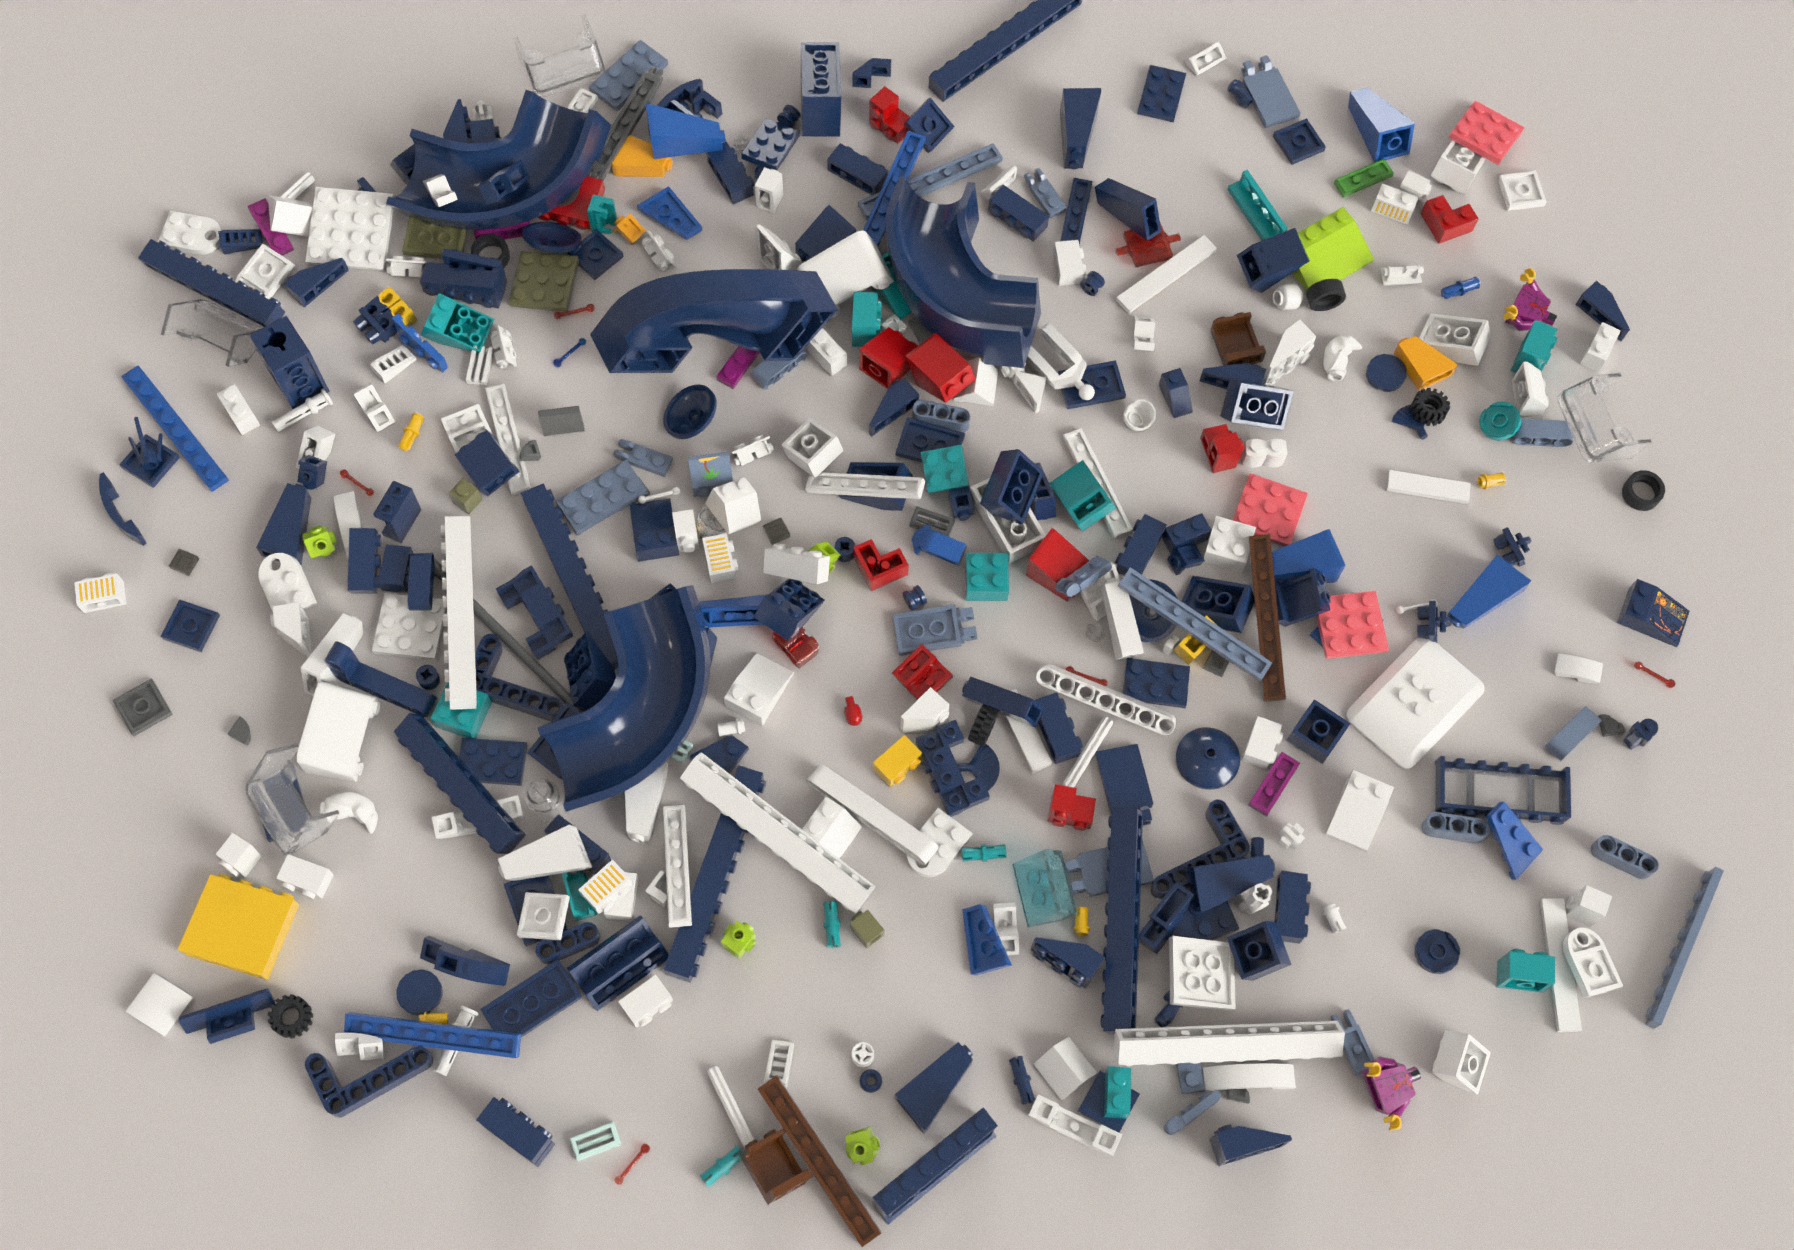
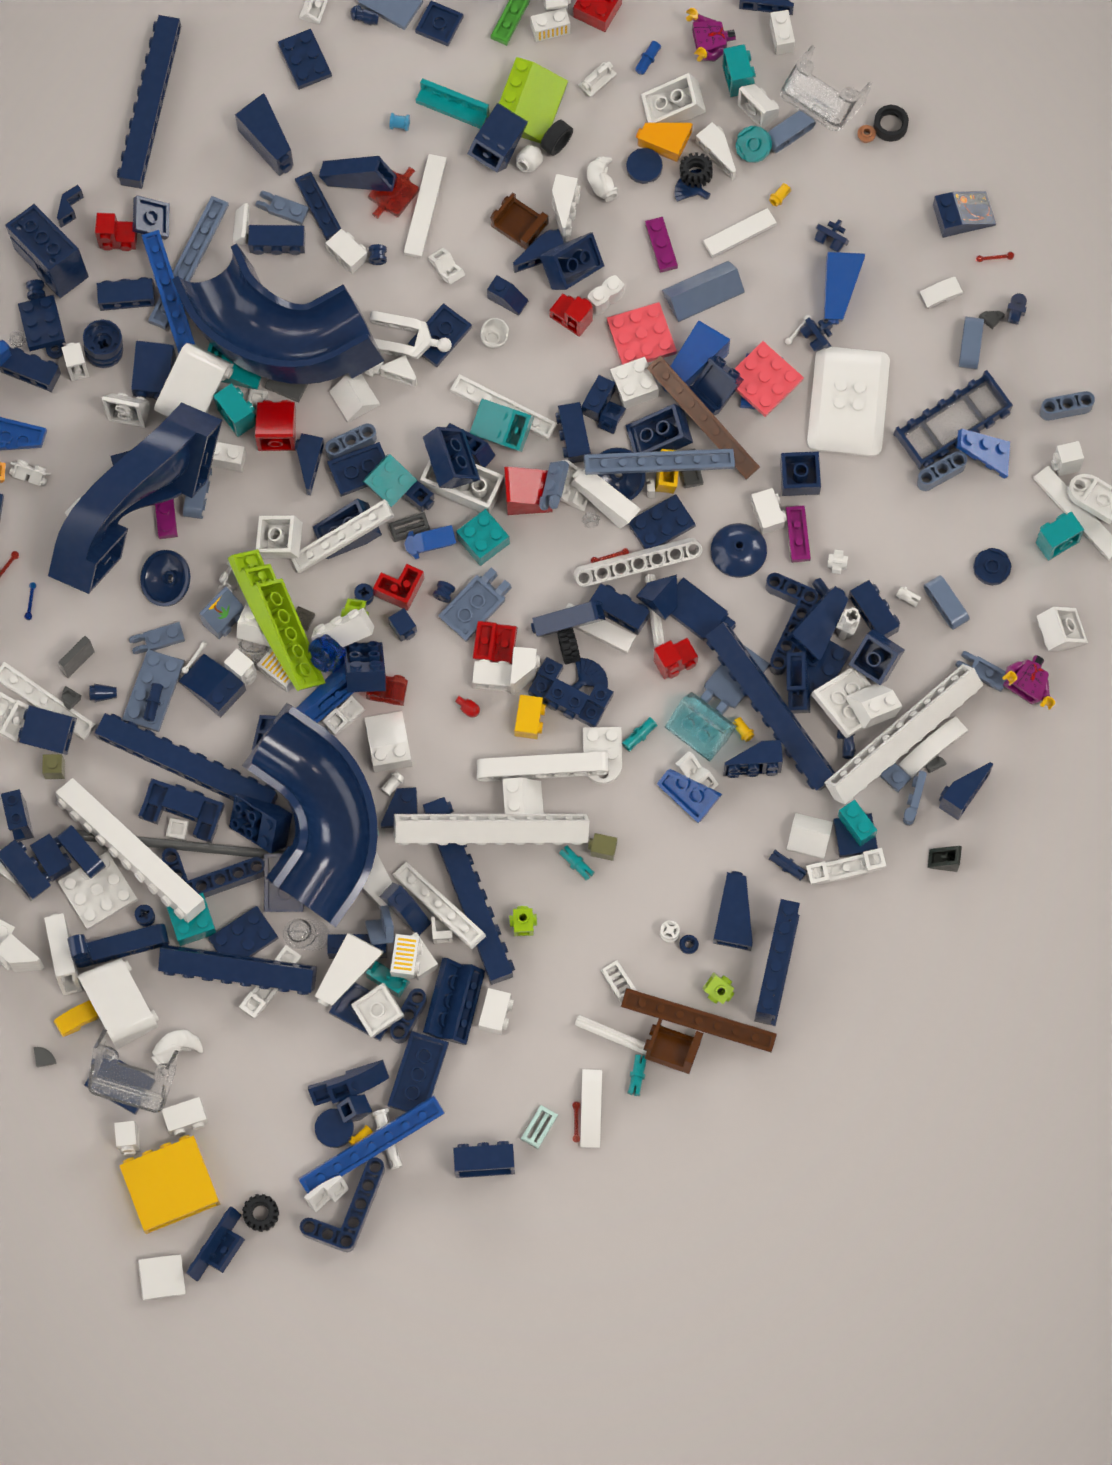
camera: 35 degrees left, 5 degrees up
(289, 718) = (75, 1018): none -> yellow slope
(448, 988) = (354, 1108): none -> dark blue brick
(520, 626) = (177, 829): none -> white tile
(558, 466) = (102, 692): none -> dark blue cone
(590, 504) = (153, 702): none -> dark blue axle
(606, 845) = (381, 930): none -> sand blue panel
(644, 845) = (405, 908): none -> dark blue slope
(654, 1162) = (591, 1108): none -> white slope
(740, 638) = (344, 715): none -> white slope
(749, 512) = (276, 617): none -> lime slope
(766, 572) = (332, 648): none -> clear blue plate
(803, 192) = (103, 343): none -> dark blue wheel
(855, 599) = (402, 625): none -> dark blue brick
(893, 698) = (492, 675): none -> white brick
(939, 368) = (323, 407): red slope -> none
(1102, 744) = (660, 596): none -> dark blue slope
(1176, 1193) = (945, 858): none -> pearl dark grey slope
(1200, 193) = (398, 121): none -> dark azure bush
(1221, 993) = (874, 704): none -> white slope
(1348, 447) = (661, 244): none -> magenta plate
(1356, 513) = (704, 290): none -> sand blue slope
(1359, 810) = (869, 508): white slope -> none
(1366, 951) = (946, 602): none -> sand blue beam
(1463, 398) = (714, 145): none -> white slope
(1609, 487) = (866, 138): none -> nougat plate

